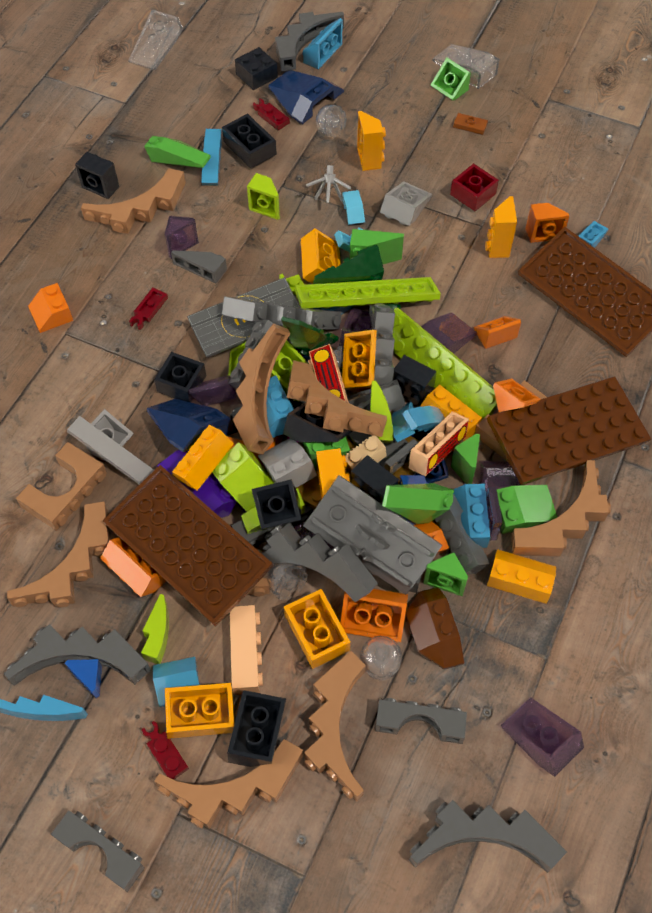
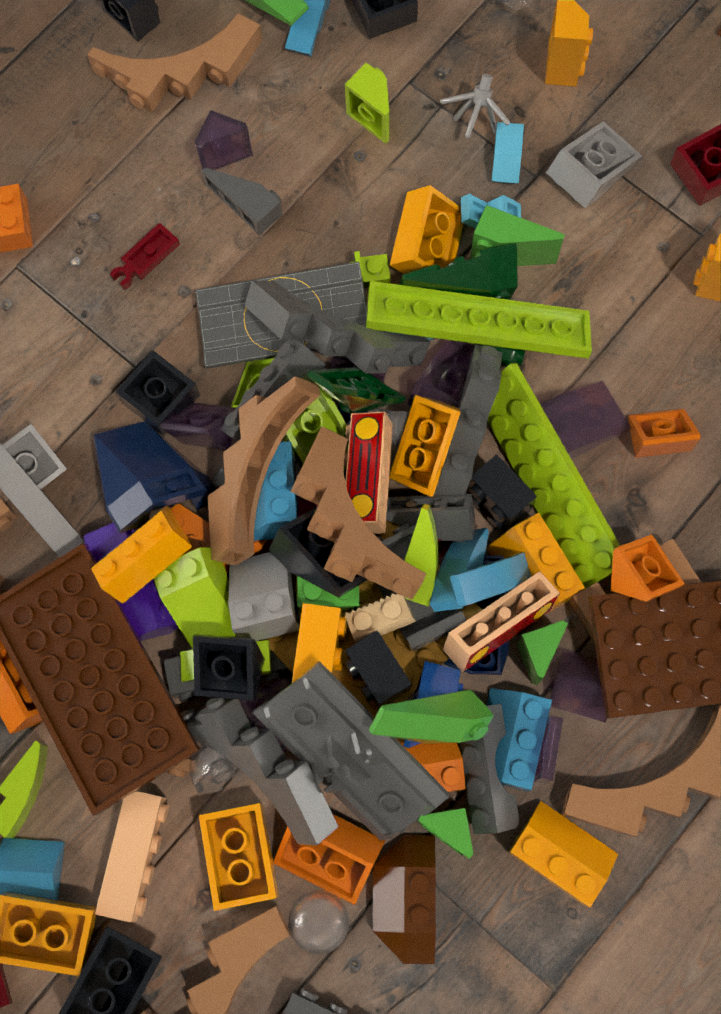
camera: 20 degrees right, 15 degrees up
(525, 506) = (603, 749): bright green slope -> none

